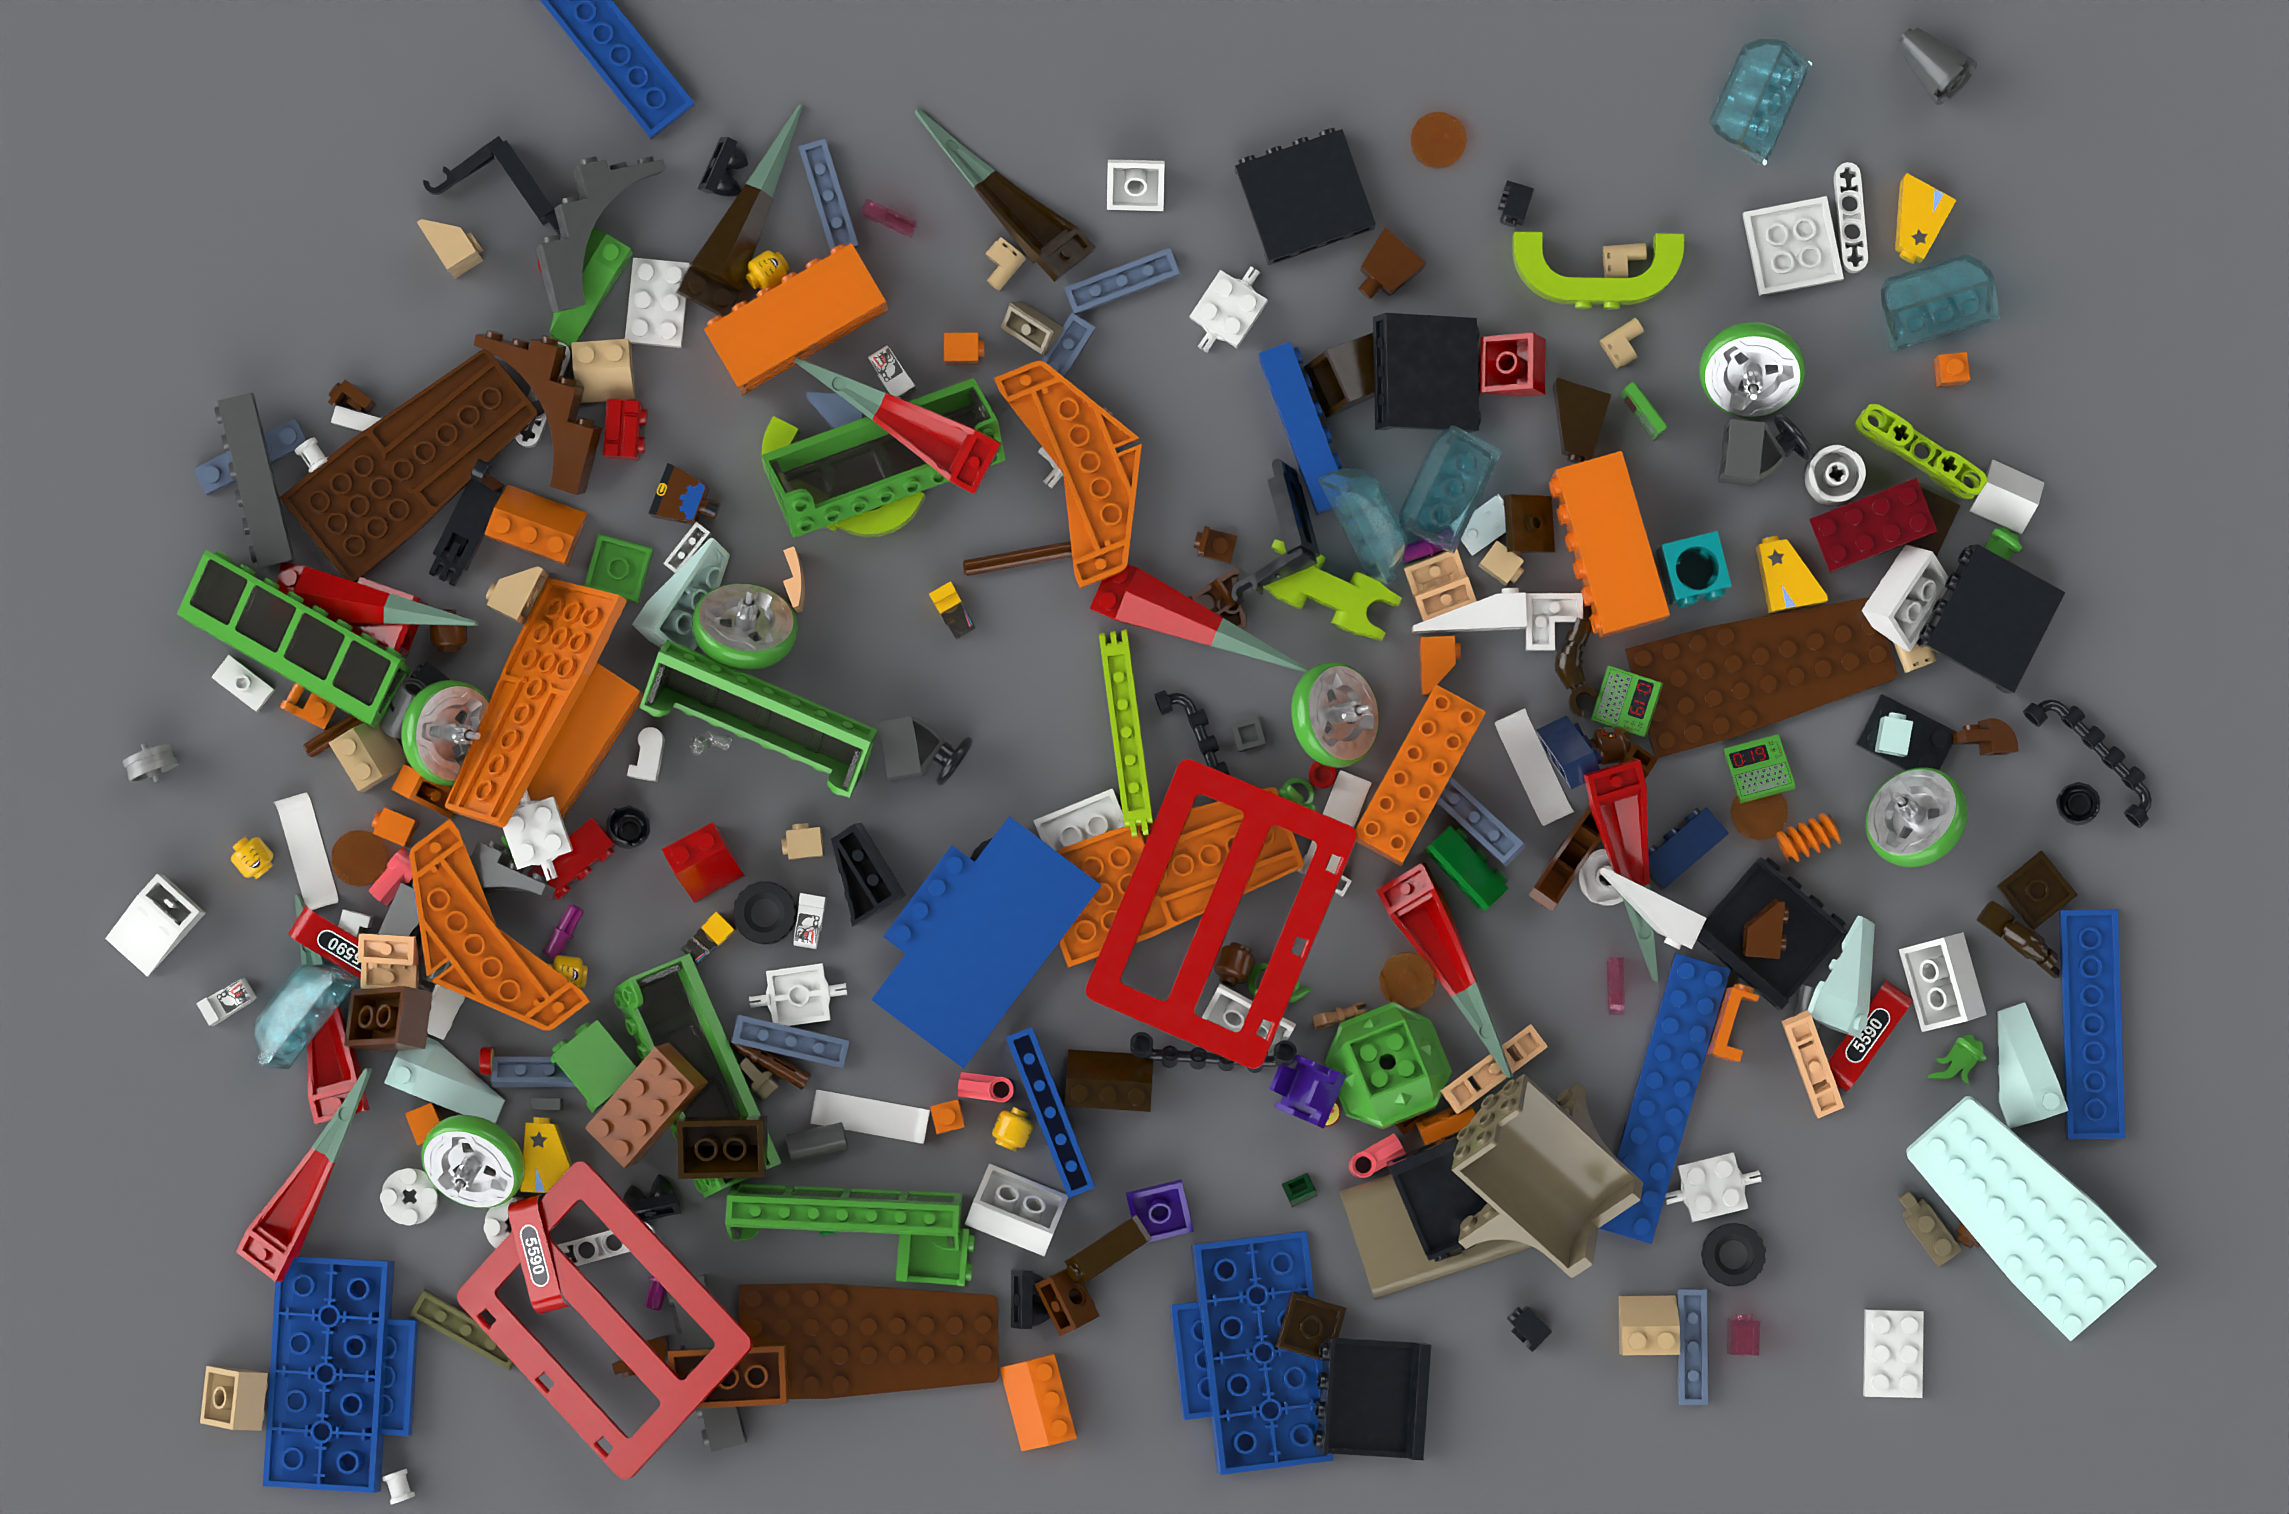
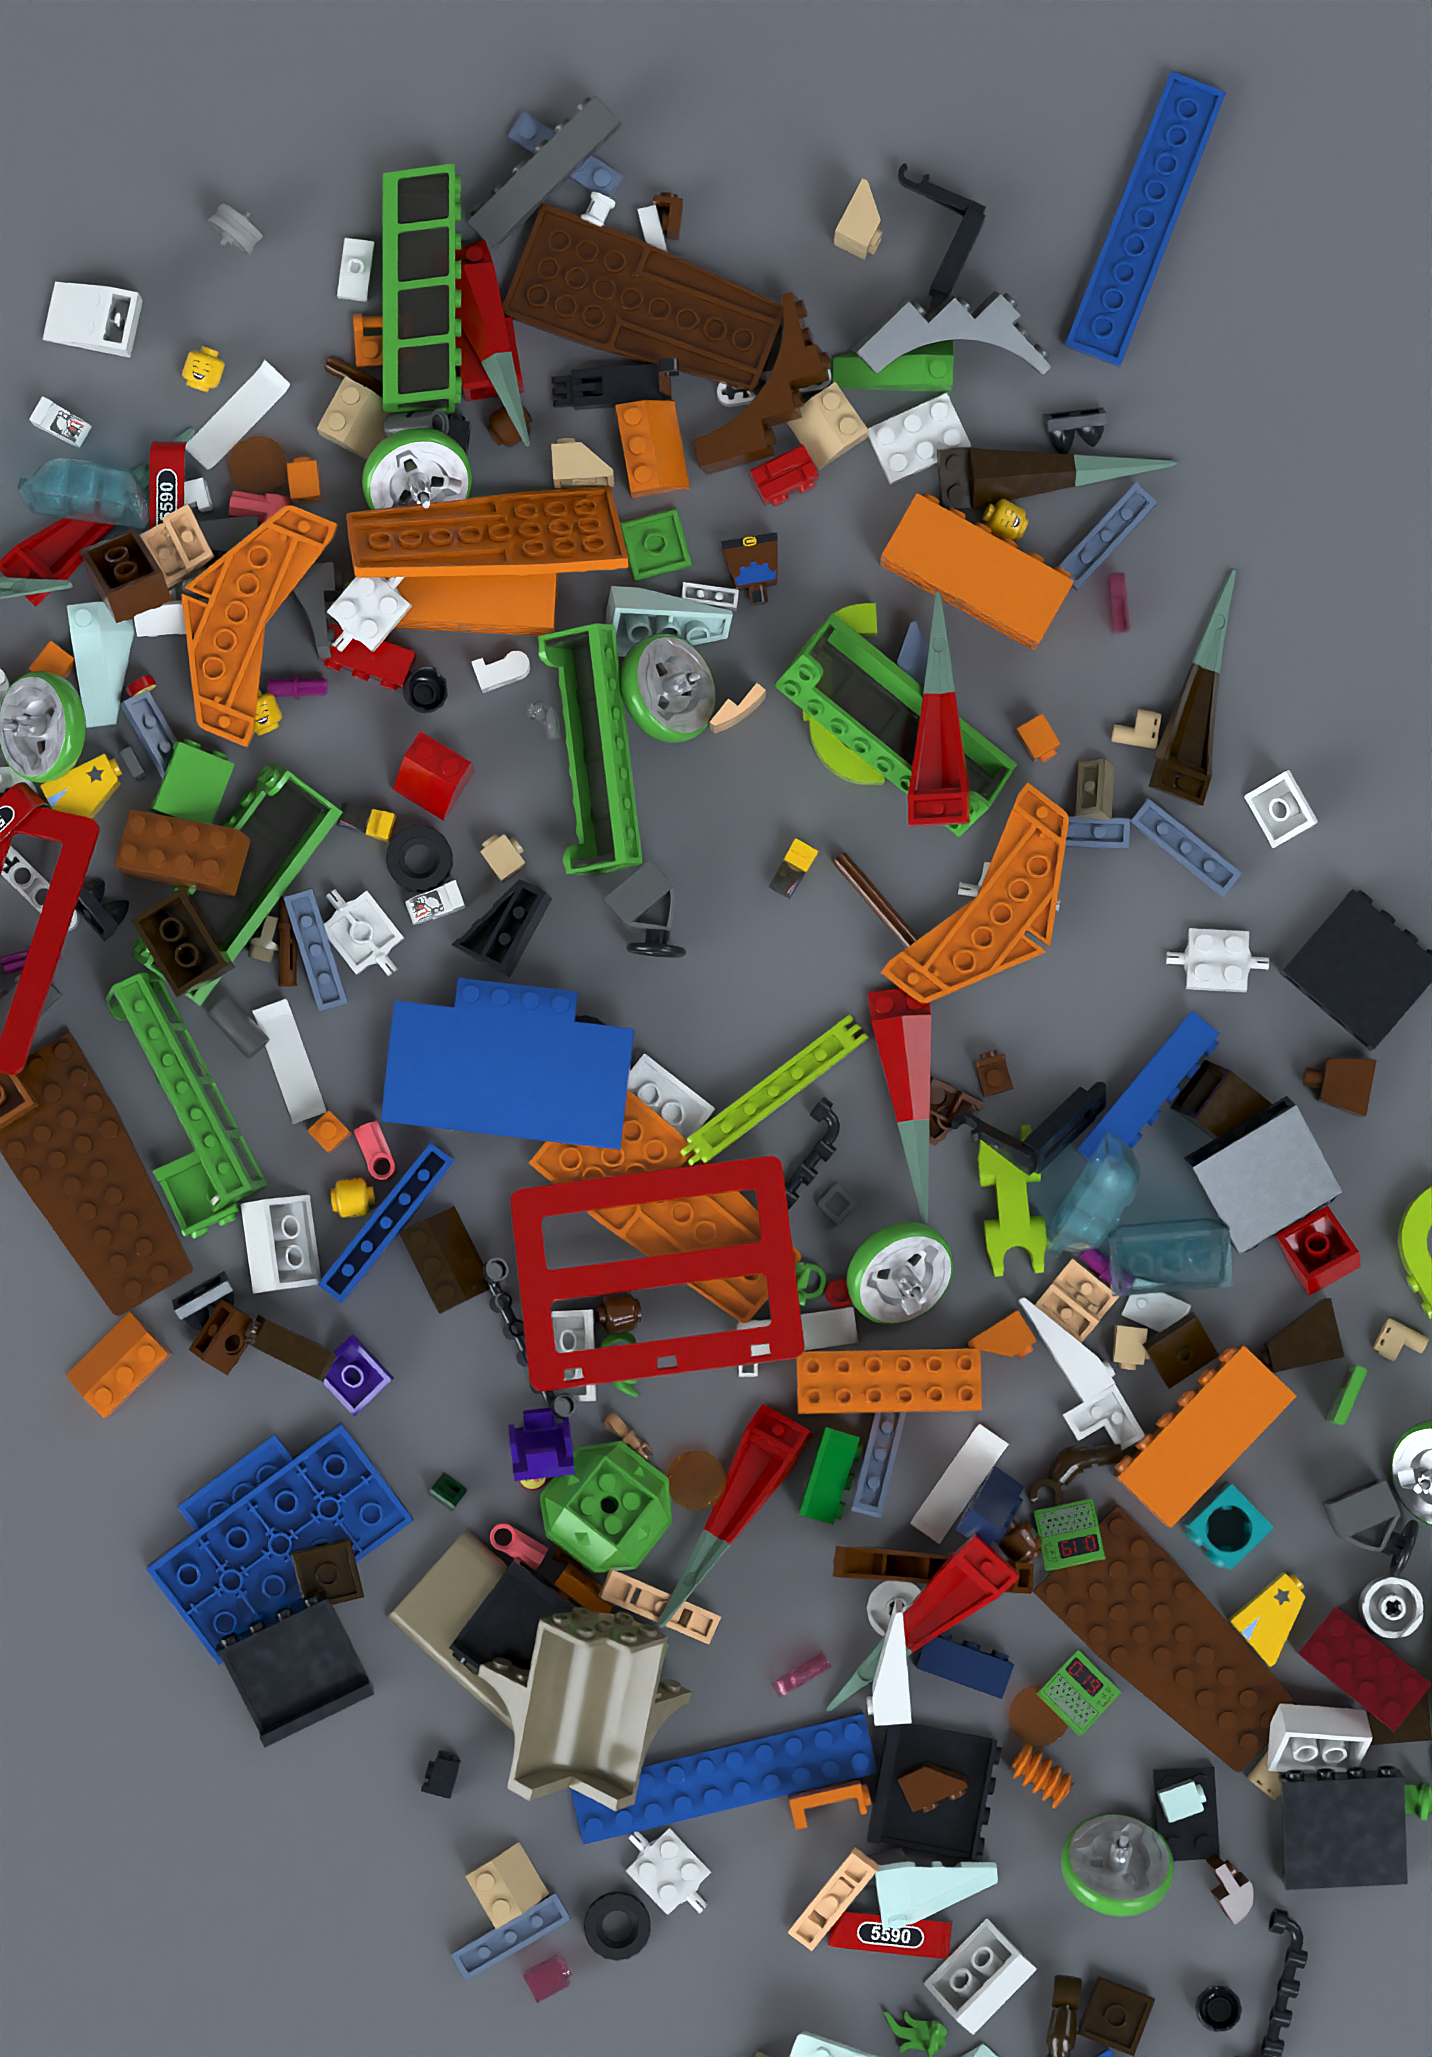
camera: 60 degrees right, 0 degrees up
(422, 791) = (349, 485): orange slope -> none
(891, 373) = (977, 688): white leg -> none

